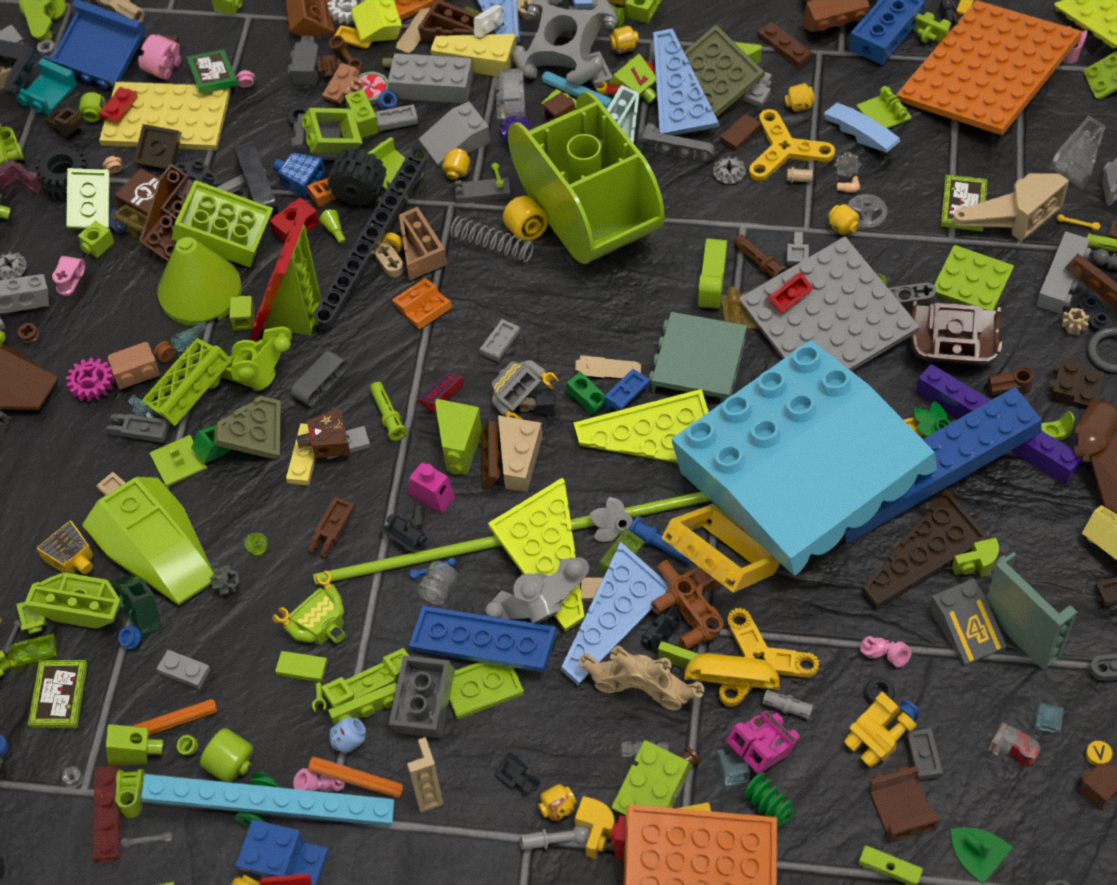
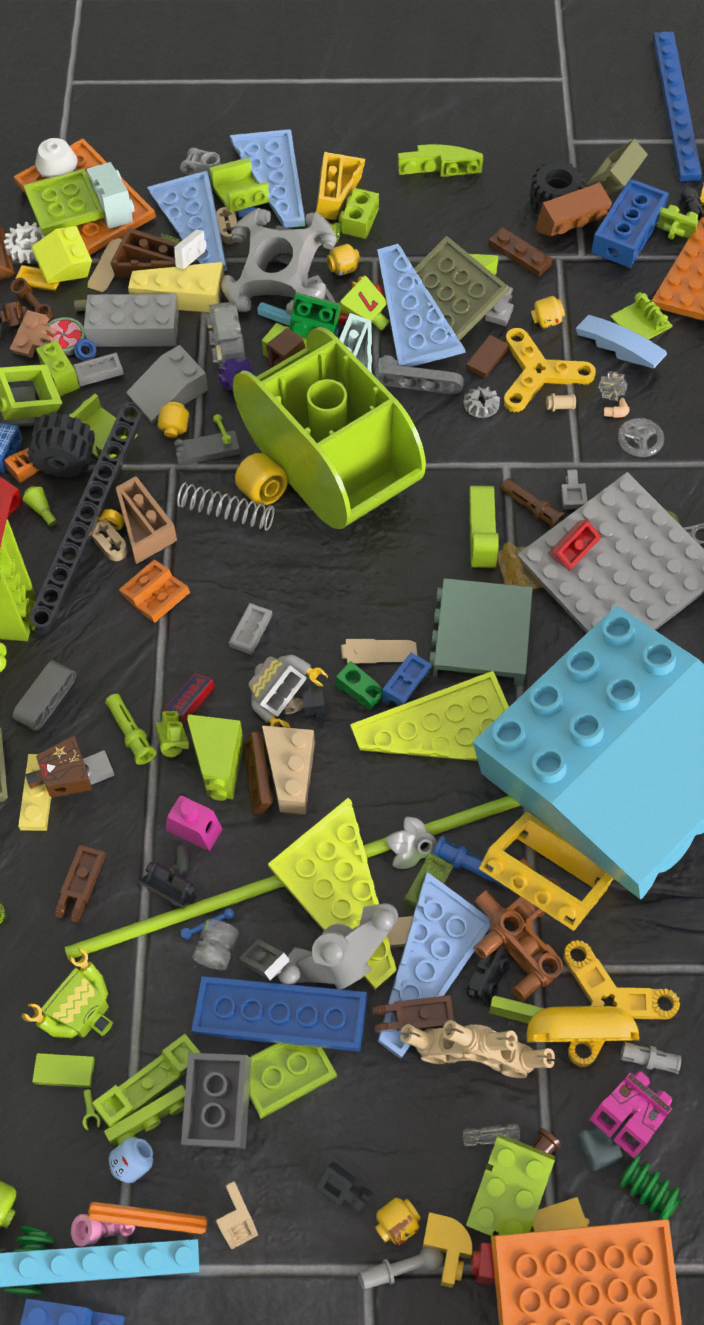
camera: 10 degrees left, 5 degrees up
(421, 417) = (171, 734): none -> lime hips
(475, 596) = (264, 959): none -> dark grey plate
(590, 80) = (313, 312): none -> green slope
(597, 646) = (419, 1013): none -> reddish brown hinge
(843, 219) = (619, 450): yellow head -> none

